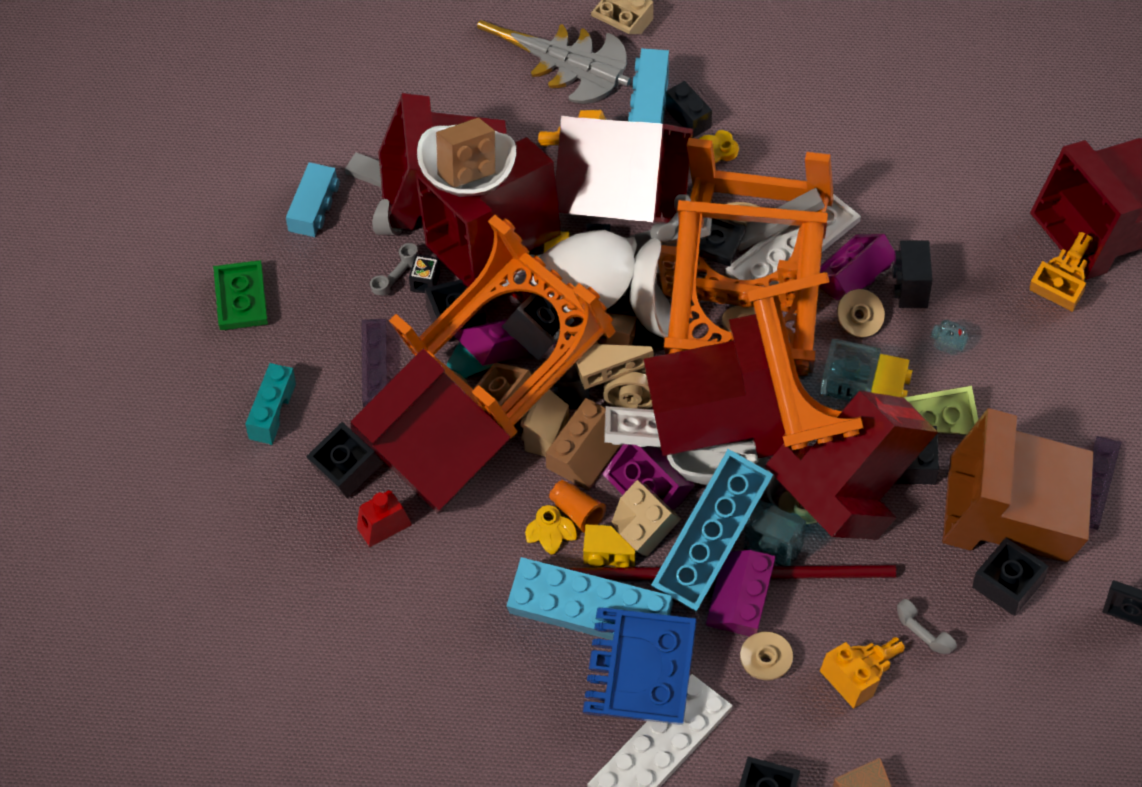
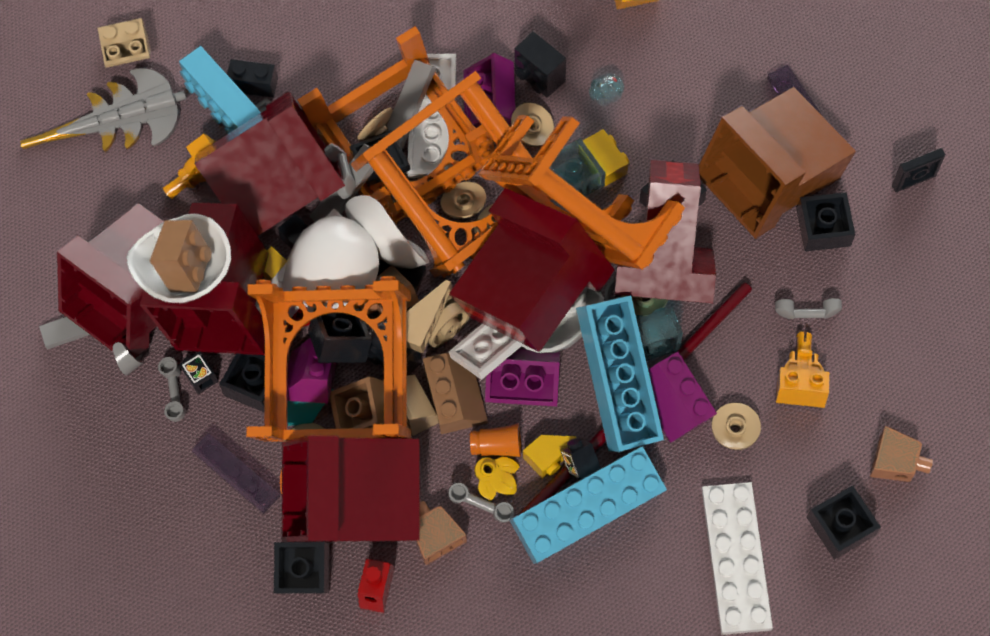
camera: 45 degrees left, 10 degrees up
(240, 295) = (76, 516): green plate -> none
(264, 415) = (195, 577): teal arch -> none
(312, 199) = (49, 392): medium azure brick -> none
(462, 525) = (437, 533): none -> nougat torso
(509, 514) = (501, 512): none -> light grey bar
(620, 564) = (580, 458): none -> black brick
(643, 518) = (555, 408): tan slope -> none
(644, 669) = (679, 514): blue hinge -> none
(723, 145) = (299, 83): yellow plate -> none
(949, 410) = (663, 142): yellowish green wing -> none

